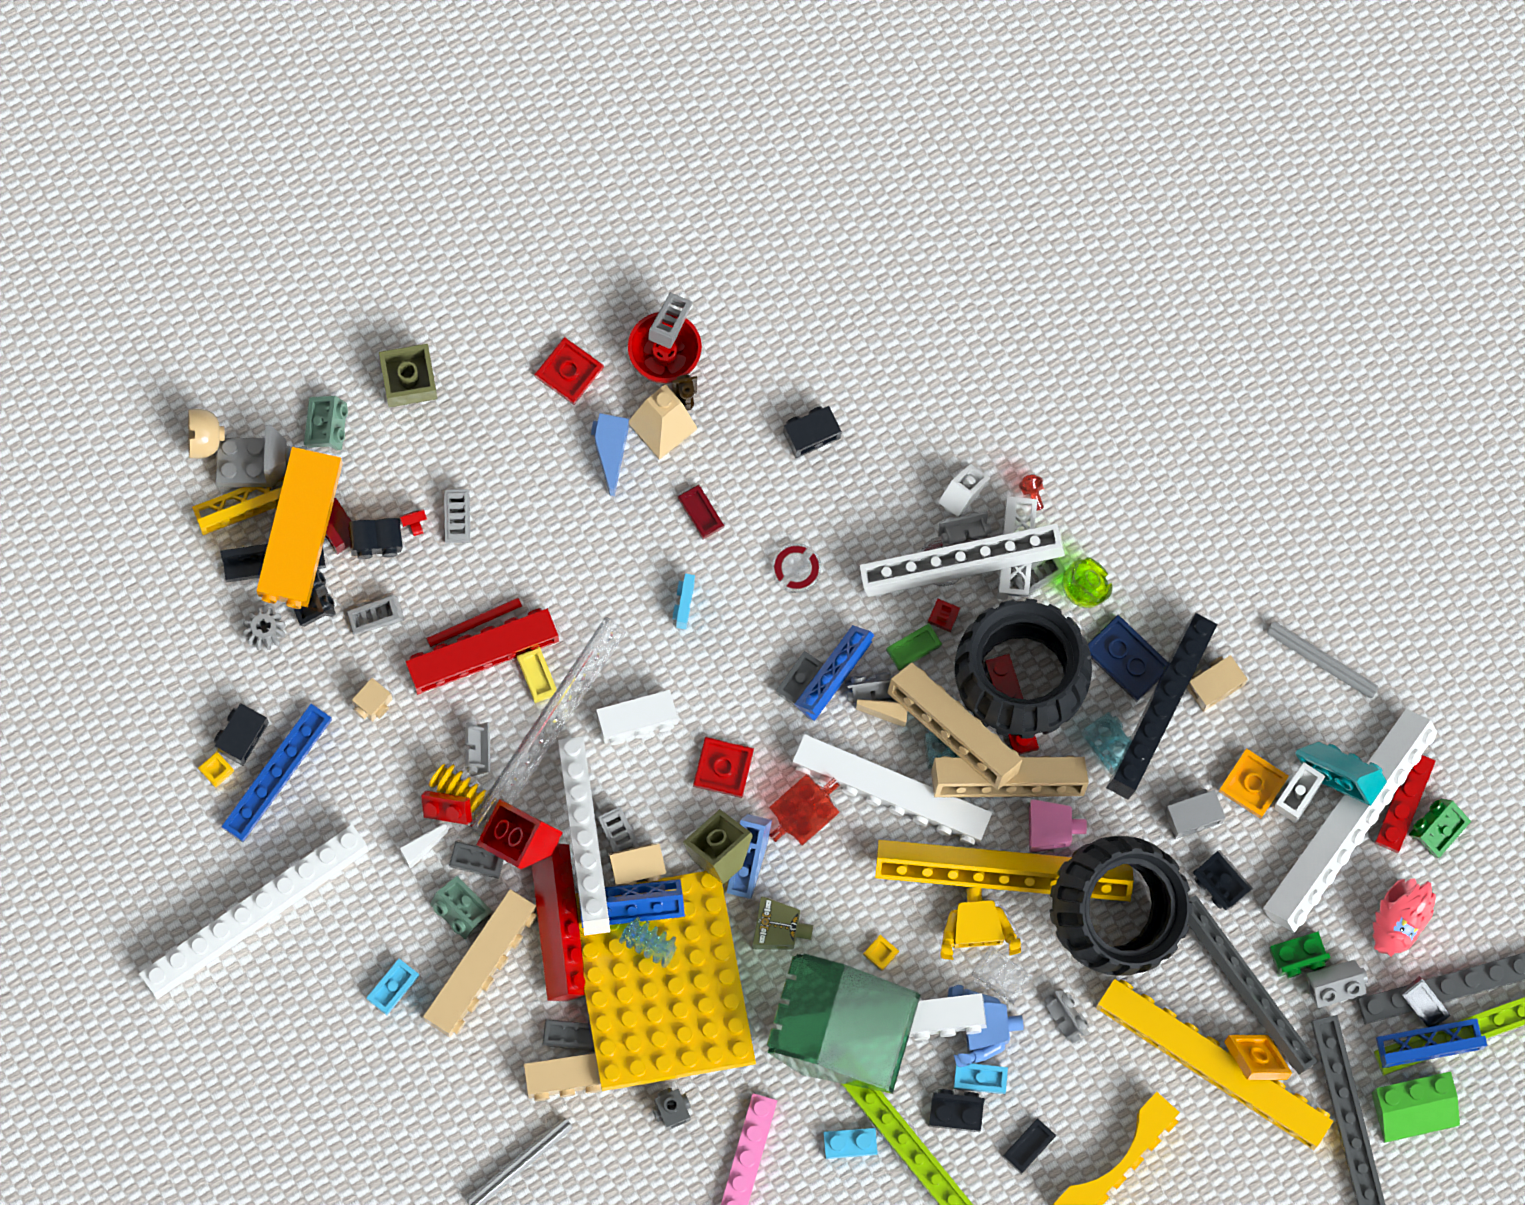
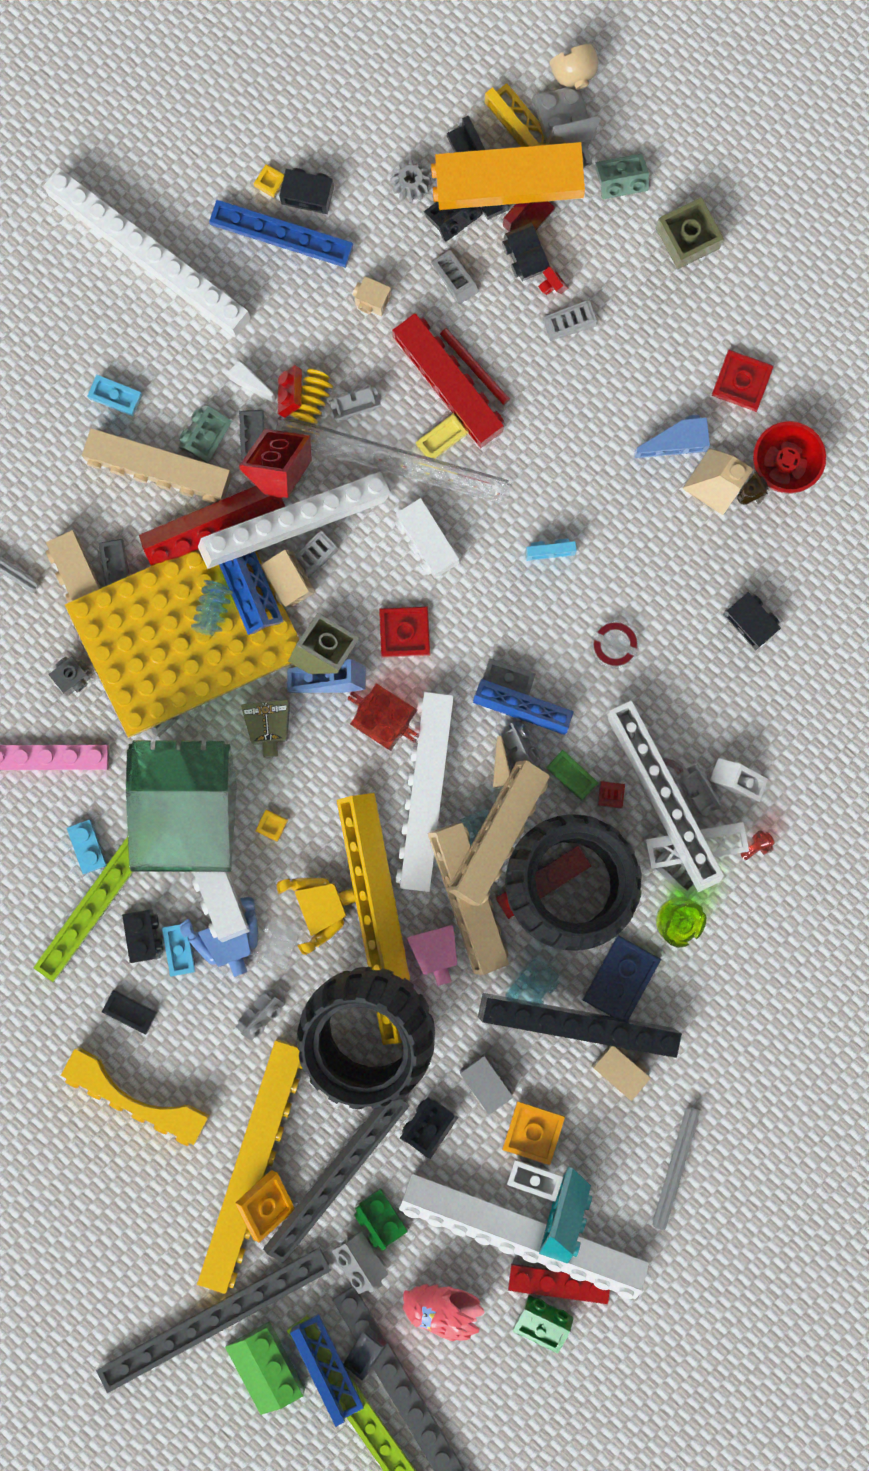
camera: 80 degrees right, 10 degrees up
(662, 333) = (801, 451): light grey slope -> none
(701, 512) = (643, 541): dark red tile -> none

